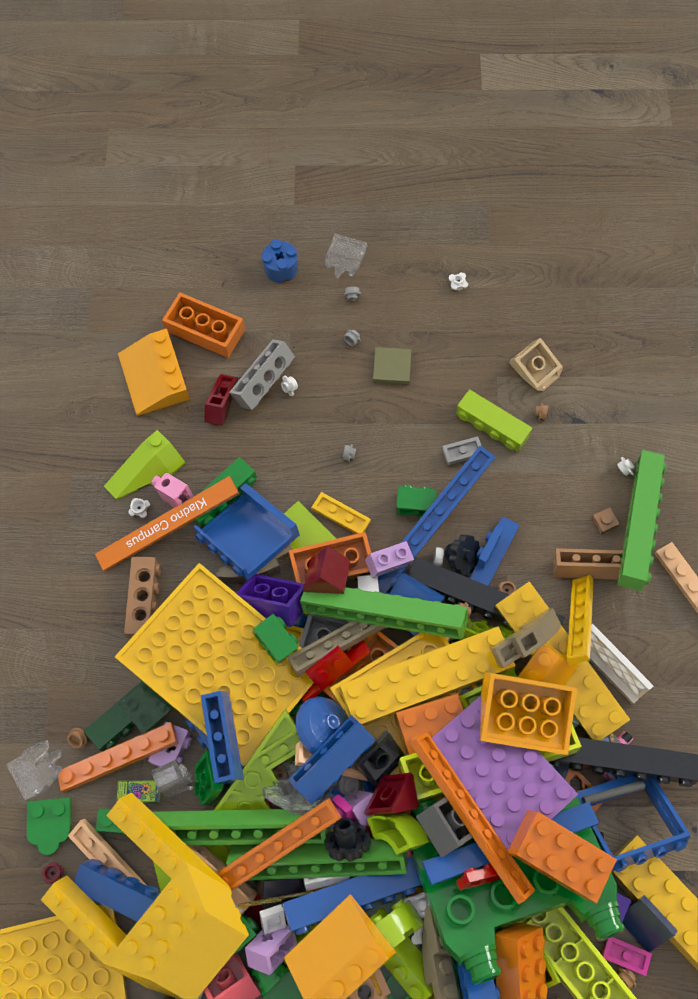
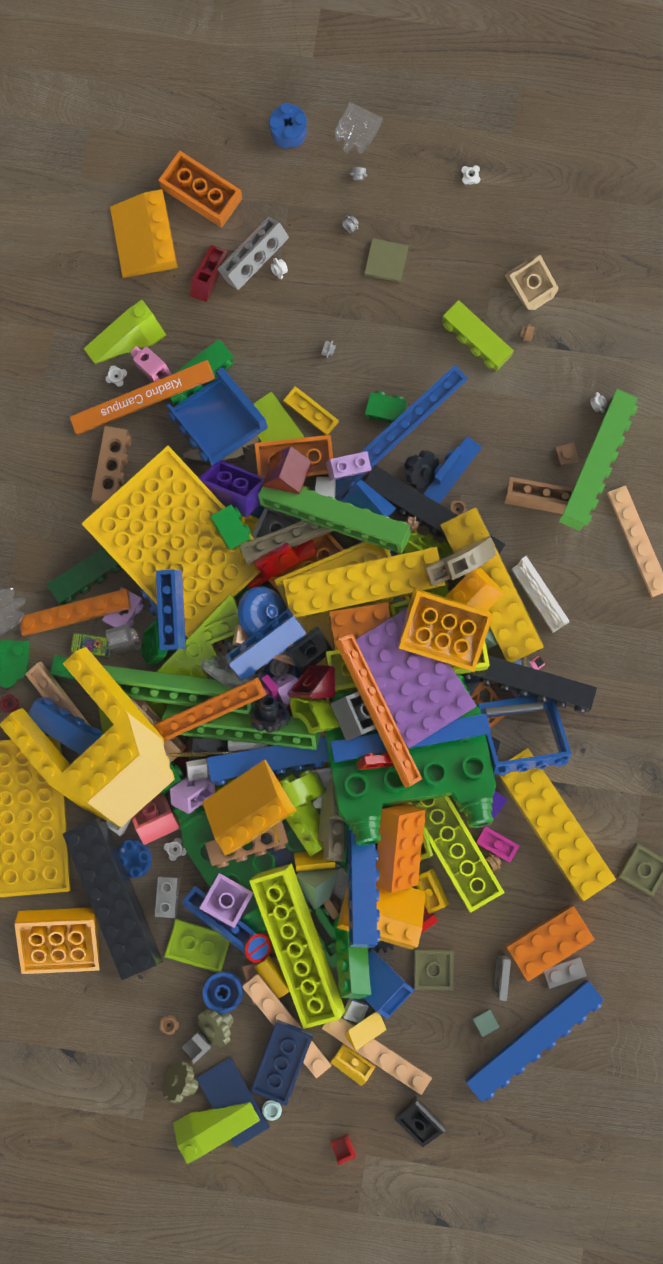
camera: 10 degrees right, 15 degrees up
(77, 738) = (40, 589): medium nougat plate -> none
(145, 707) = (104, 571): clear green hinge -> none
(438, 556) = (397, 468): white tile -> none
(460, 450) = (440, 362): light grey plate -> none
(562, 856) = (449, 754): orange brick -> none
(580, 620) = (516, 549): yellow tile -> none
(648, 924) = (519, 821): dark blue tile -> none

